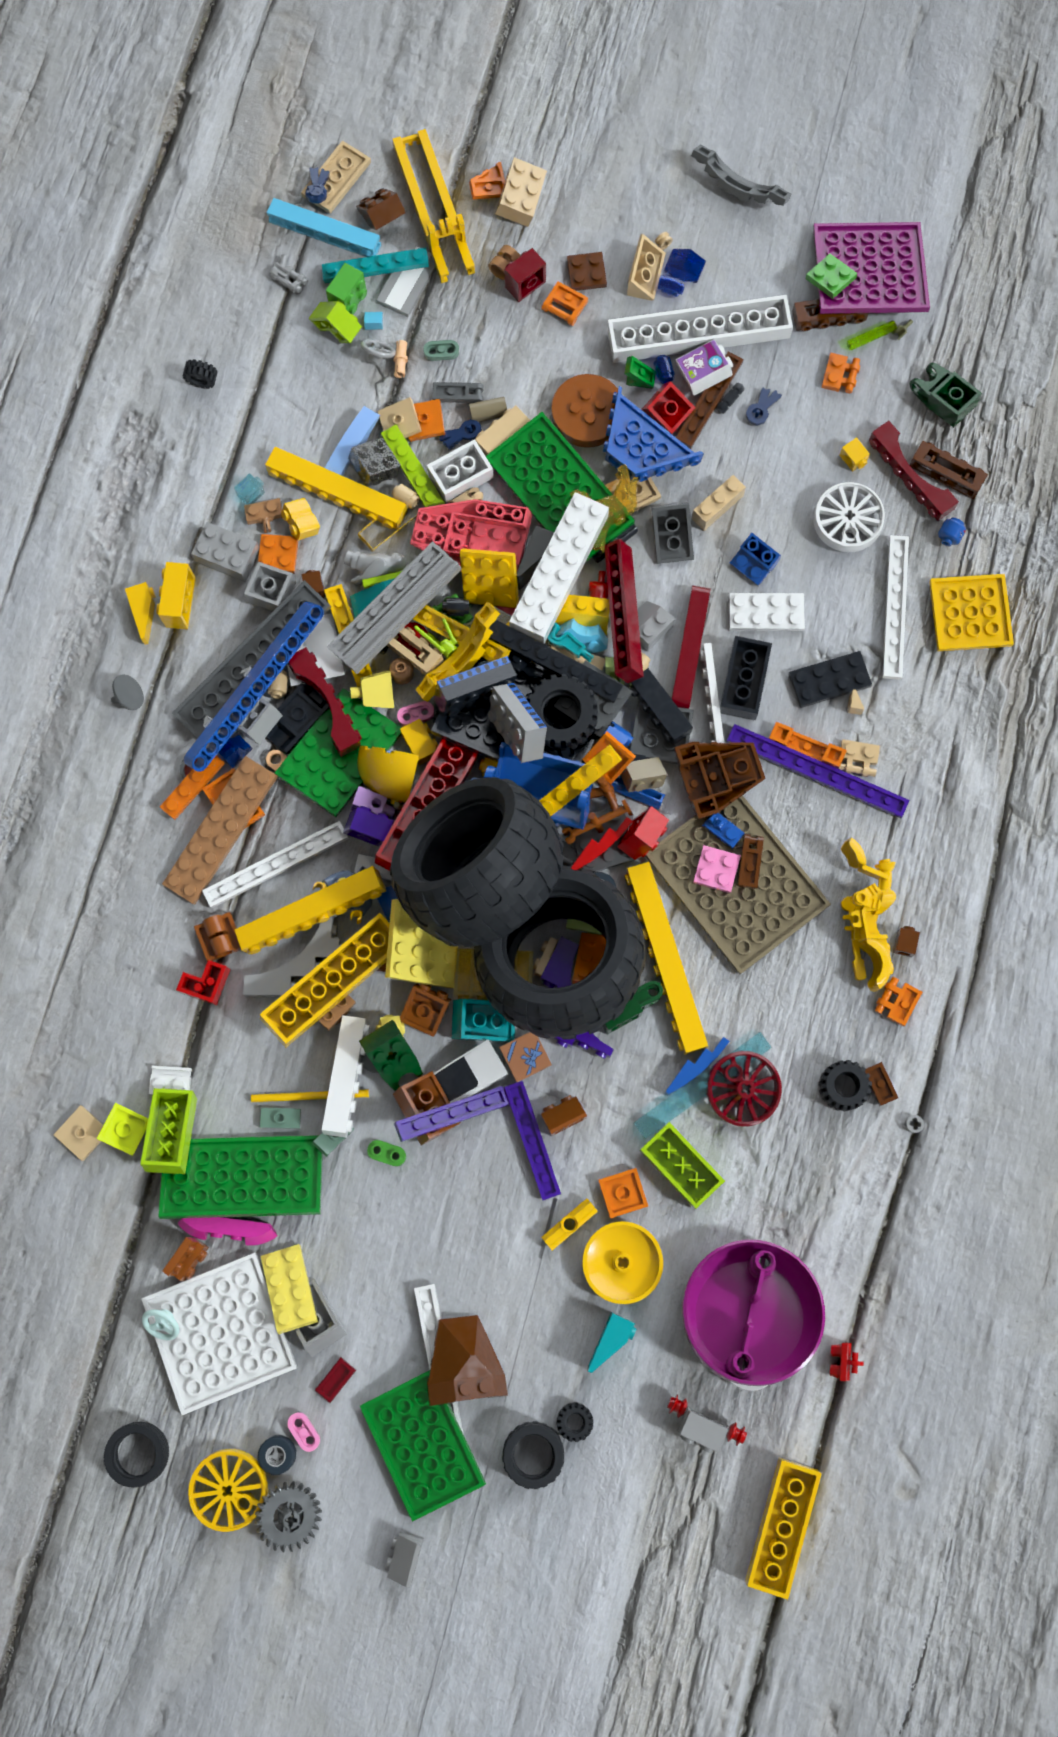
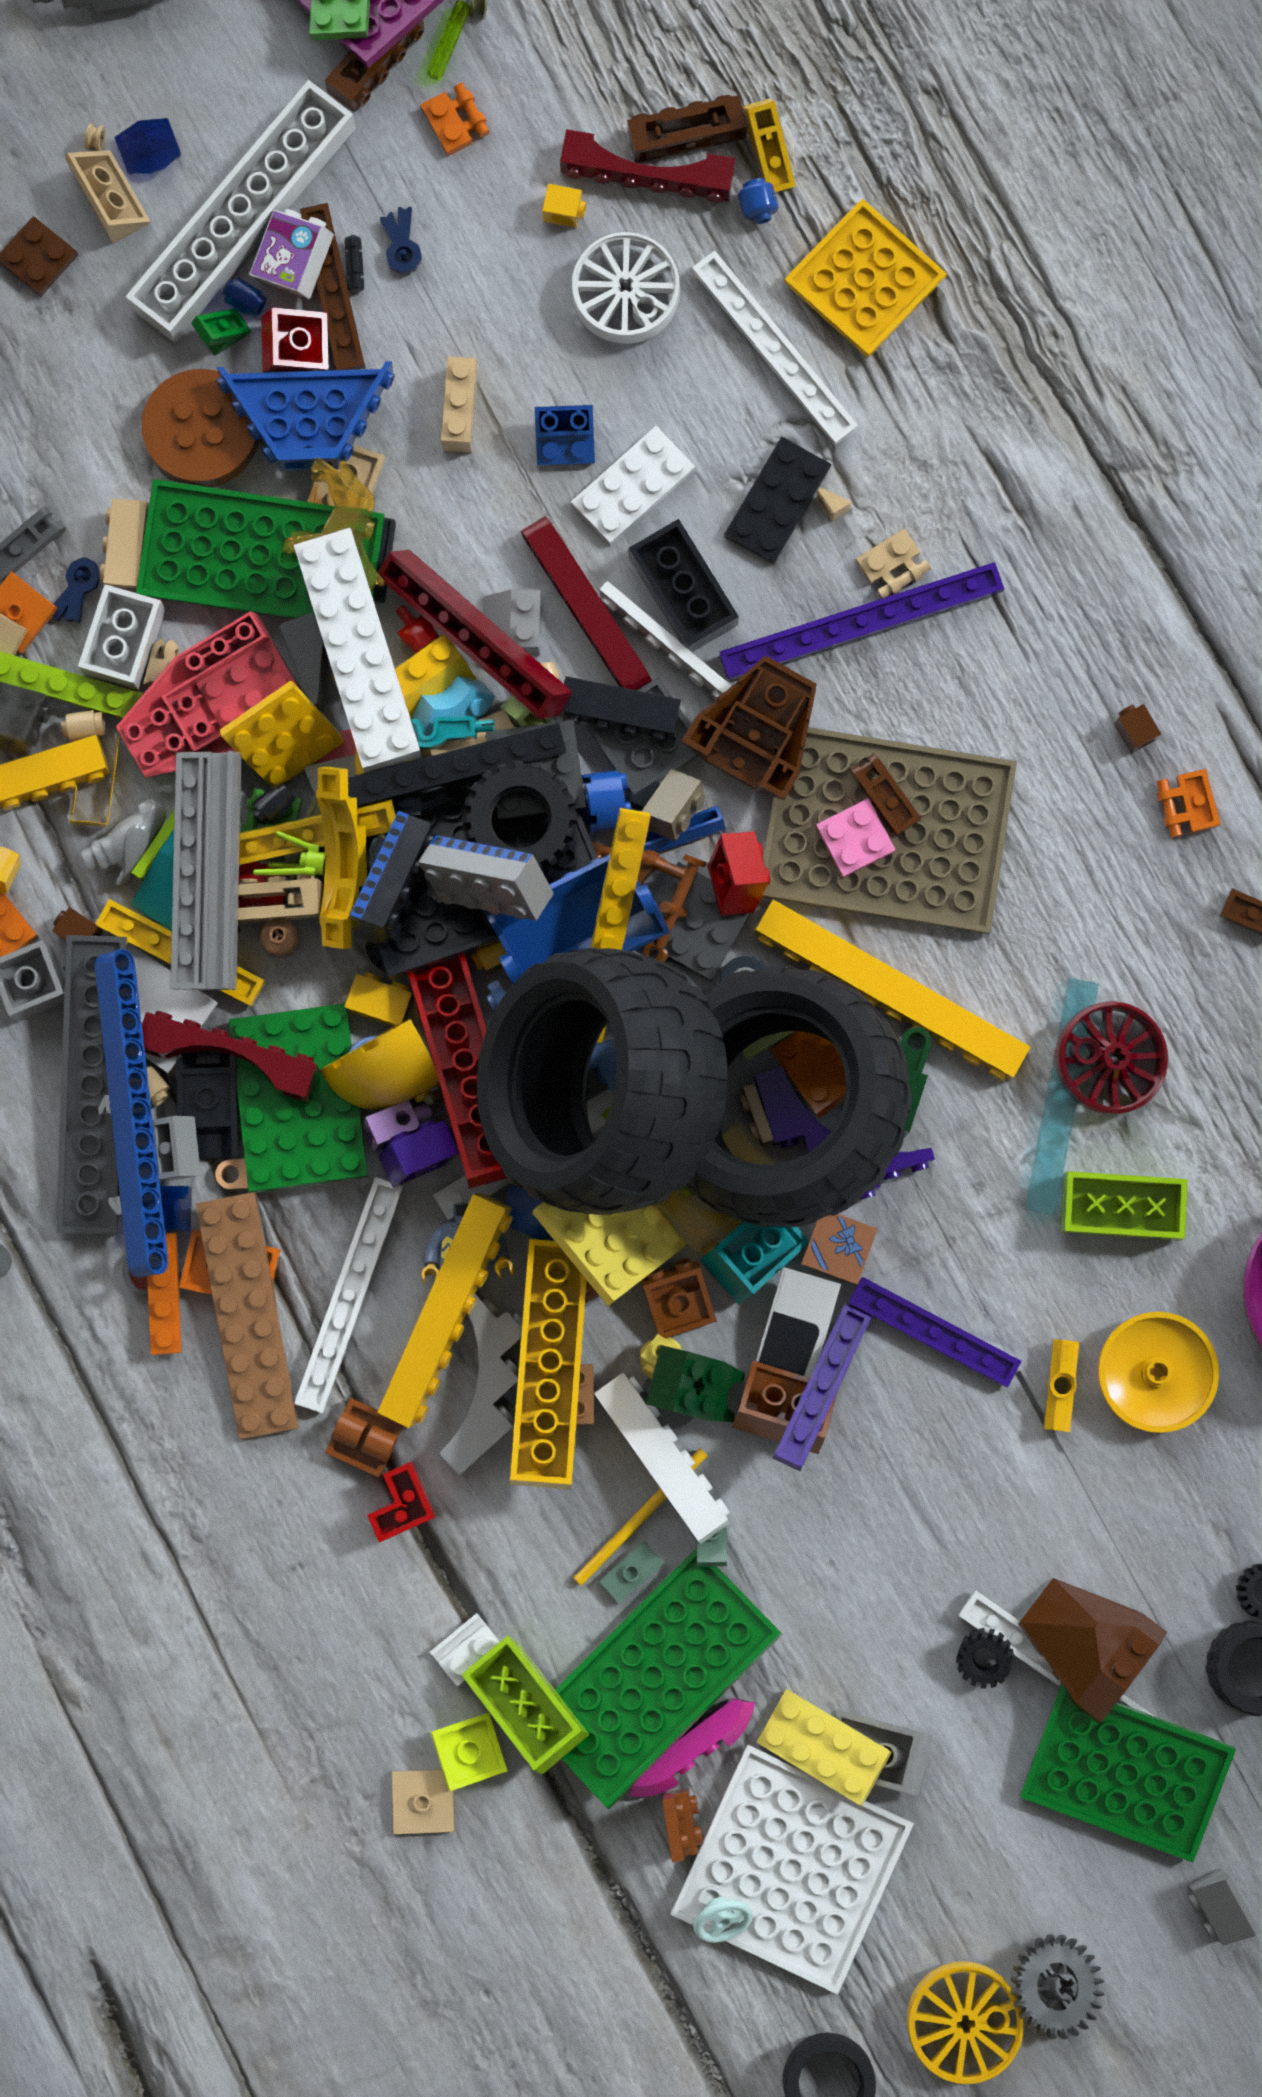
camera: 45 degrees left, 5 degrees up
(272, 1460) = (991, 1939): black wheel -> none
(304, 1431) = (985, 1882): bright pink plate -> none
(335, 1380) = (966, 1795): dark red tile -> none
(375, 690) = (272, 988): light yellow torso -> none
(386, 1153) = (787, 1498): bright green plate -> none
(396, 1321) = (985, 1674): none -> black tyre
(415, 712) = (341, 972): bright pink plate -> none
(488, 409) = (80, 531): dark tan brick -> none
(563, 1115) = (944, 1272): dark orange slope -> none
(567, 298) = (45, 311): orange plate -> none
(595, 849) = (700, 943): red slope -> none
(614, 1336) = (1224, 1464): teal slope -> none
(623, 1193) = (1086, 1296): orange plate -> none
(626, 755) = (605, 814): orange plate -> none
(671, 285) = (156, 186): clear blue brick -> none
(672, 533) = (439, 487): dark grey slope -> none
(691, 1070) = (1036, 1092): blue slope -> none
(723, 829) = (822, 786): blue plate -> none
(825, 753) = (853, 592): orange slope -> none
(861, 1081) = (1239, 941): black tyre -> none
(863, 912) = (1060, 736): yellow piece -> none
(946, 394) = (603, 38): dark green brick -> none
(981, 511) = (769, 143): none -> yellow slope

